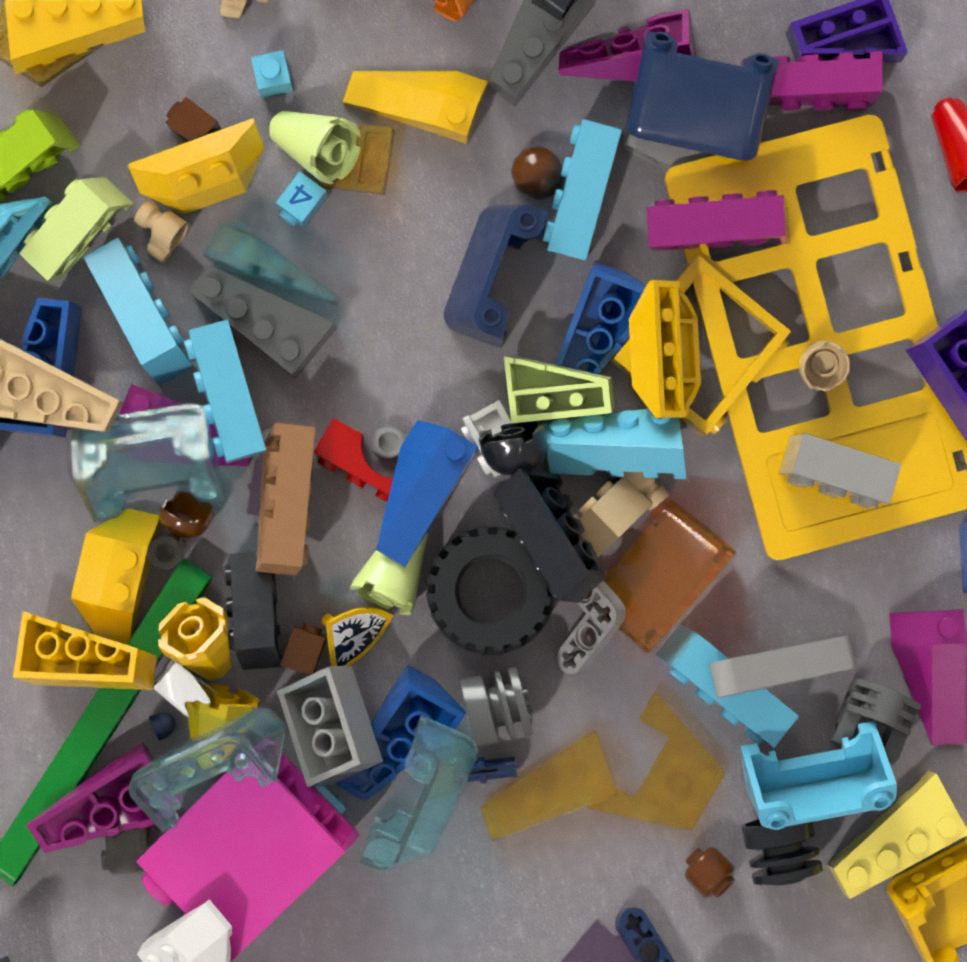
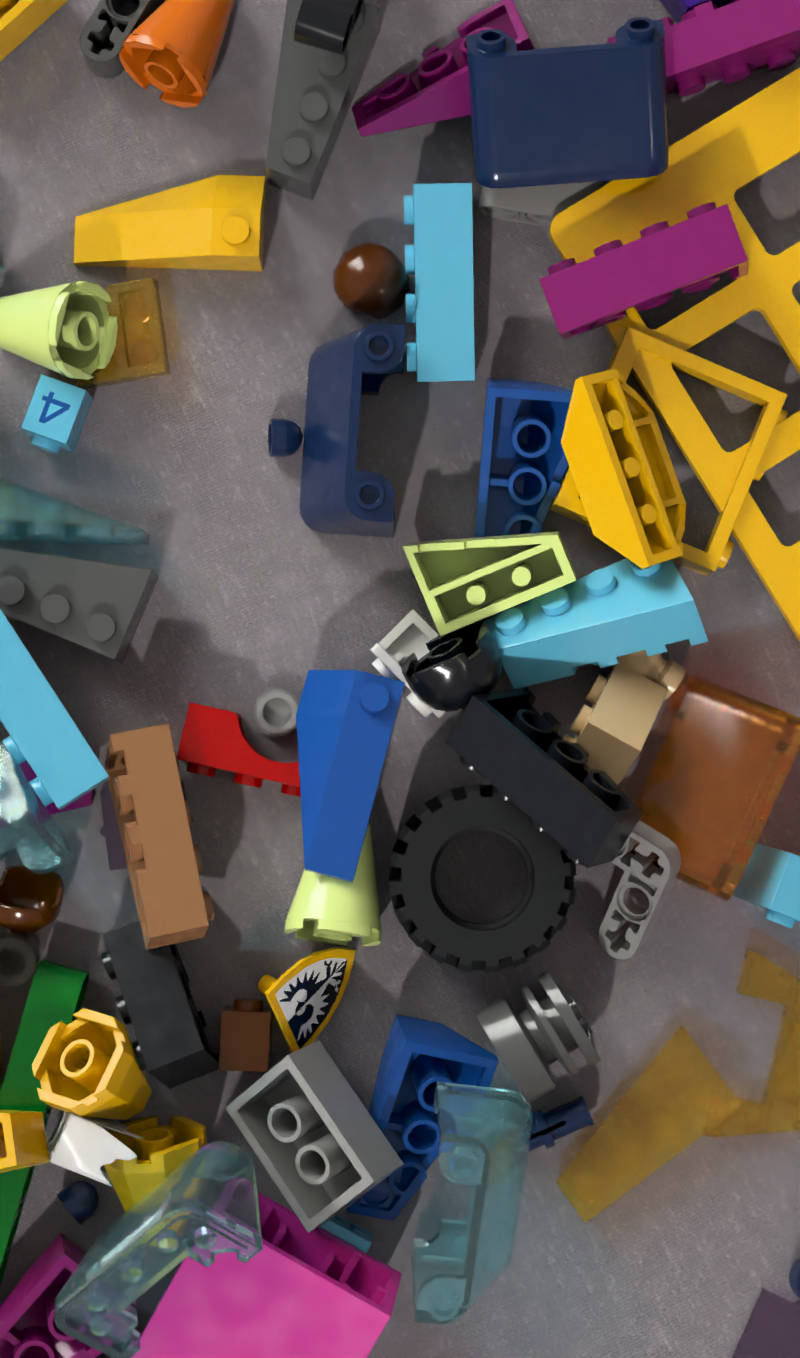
camera: 20 degrees left, 0 degrees up
(447, 260) = (283, 437): none -> dark blue hinge

